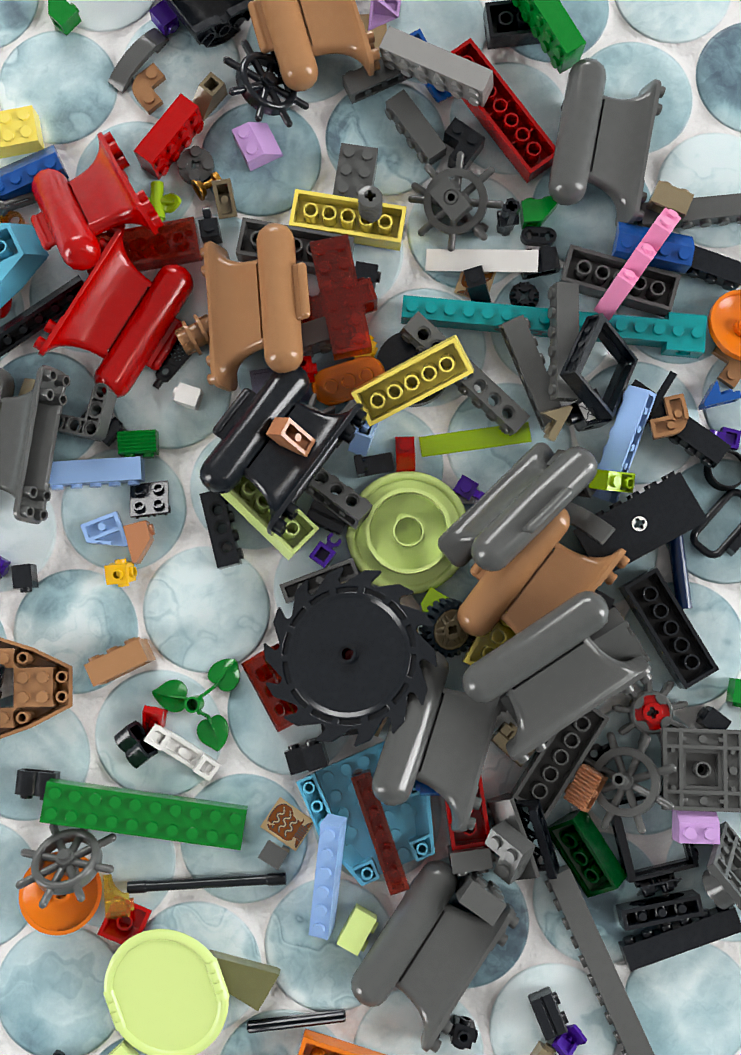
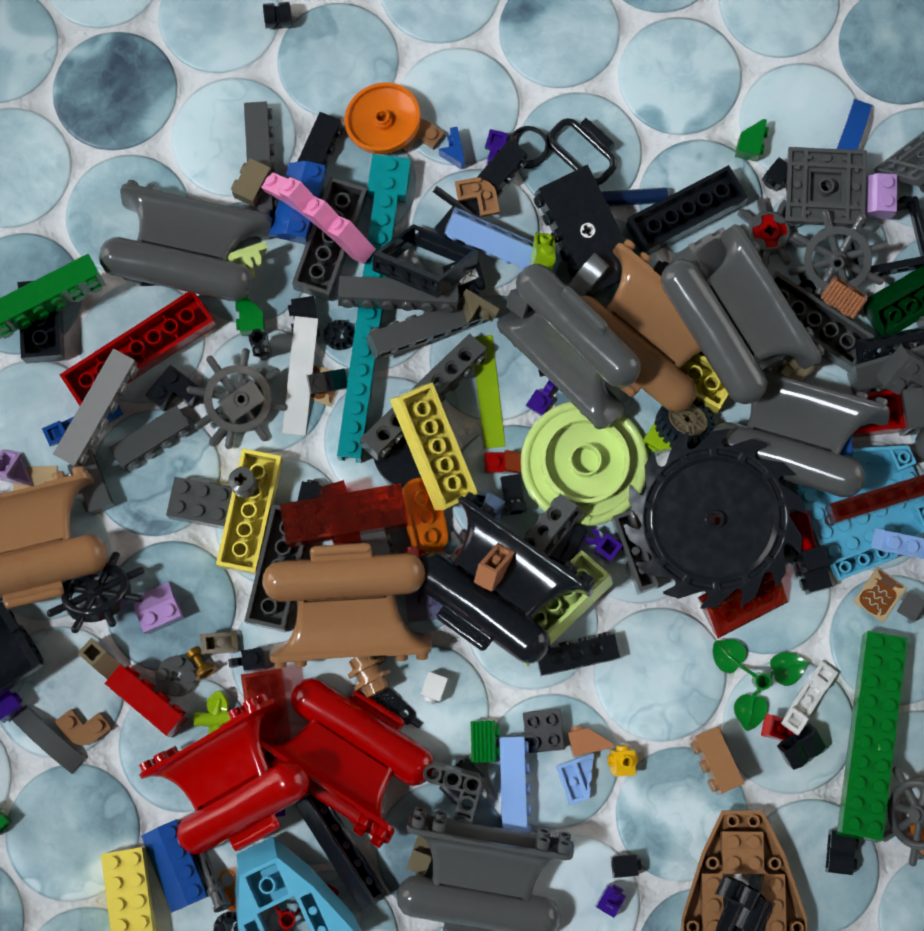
camera: 90 degrees left, 5 degrees down
(344, 747) = (804, 526): none -> red slope
(538, 236) = (270, 317): black beam -> none
(593, 202) = (249, 256): none -> yellowish green piece

